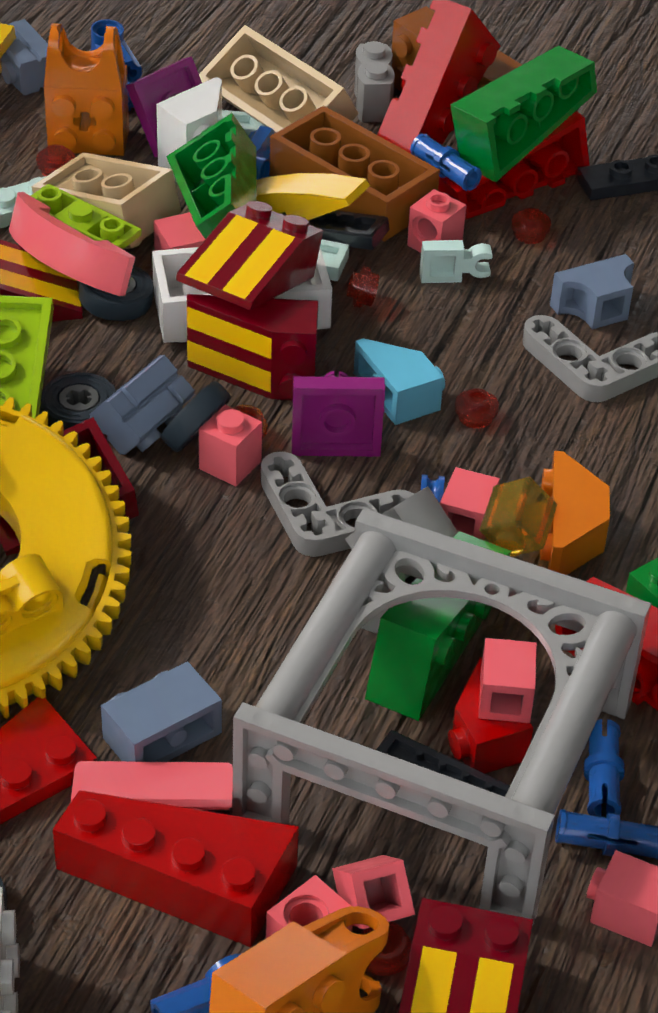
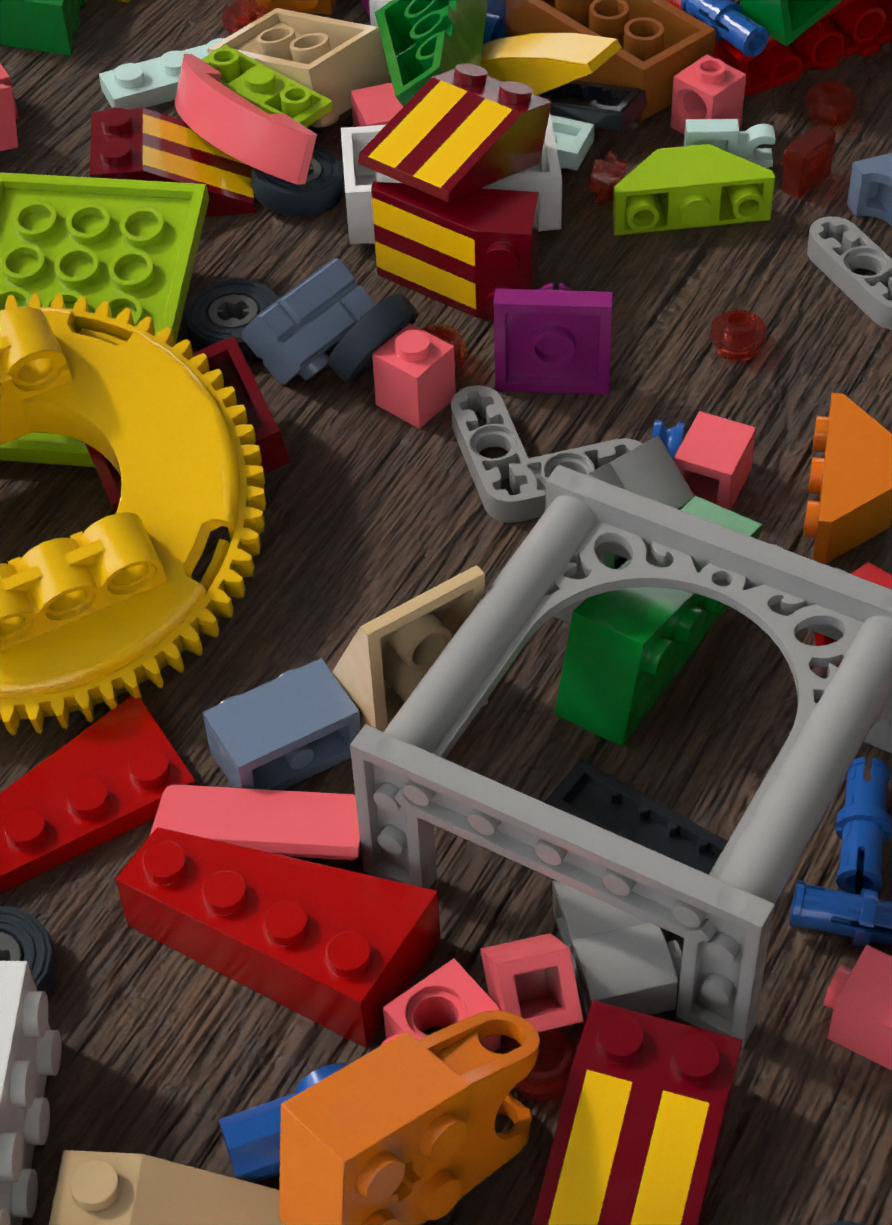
camera: 10 degrees right, 5 degrees up
(254, 652) = (401, 646): none -> tan slope
(411, 380) = (649, 296): medium azure slope -> none
(430, 296) = (691, 190): none -> lime slope
(434, 862) = (616, 954): none -> light grey brick
(485, 742) = (711, 754): red slope -> none
(507, 680) = (737, 701): coral brick -> none
(518, 272) = (808, 161): none -> clear red plate
(518, 516) = (776, 479): clear yellow brick -> none

